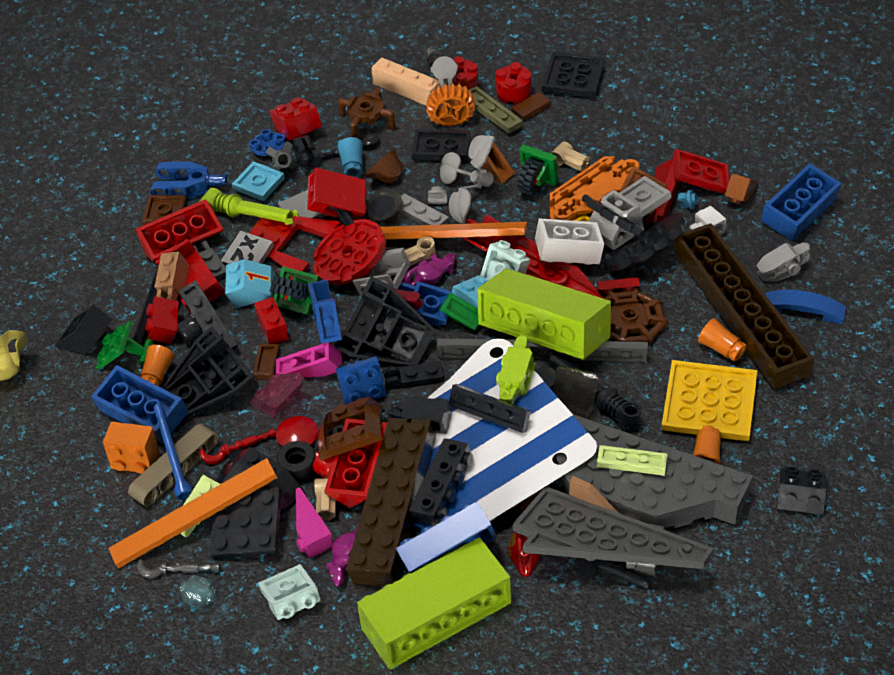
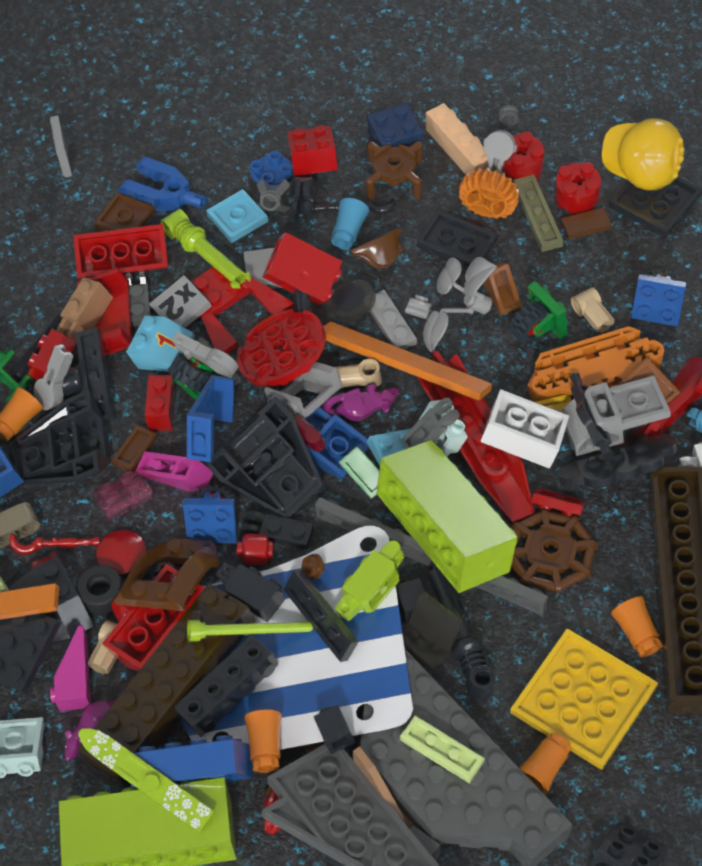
camera: 25 degrees right, 10 degrees up
(86, 175) = (60, 146): none -> light grey tile
(178, 318) = (51, 394): none -> light grey piece
(309, 268) = (214, 358): none -> light grey piece
(349, 84) = (394, 127): none -> dark blue brick
(402, 446) = (198, 630): none -> lime piece
(404, 388) = (254, 550): none -> red head
(419, 559) = (146, 778): none -> lime piece
(464, 378) = (313, 566): none -> reddish brown plate
(493, 503) = (264, 739): none -> orange plant
(500, 257) = (431, 425): none -> dark grey hinge
(545, 474) = (334, 729): none -> black brick
(553, 43) = (644, 153): none -> yellow piece
(616, 133) = (659, 298): none -> blue plate

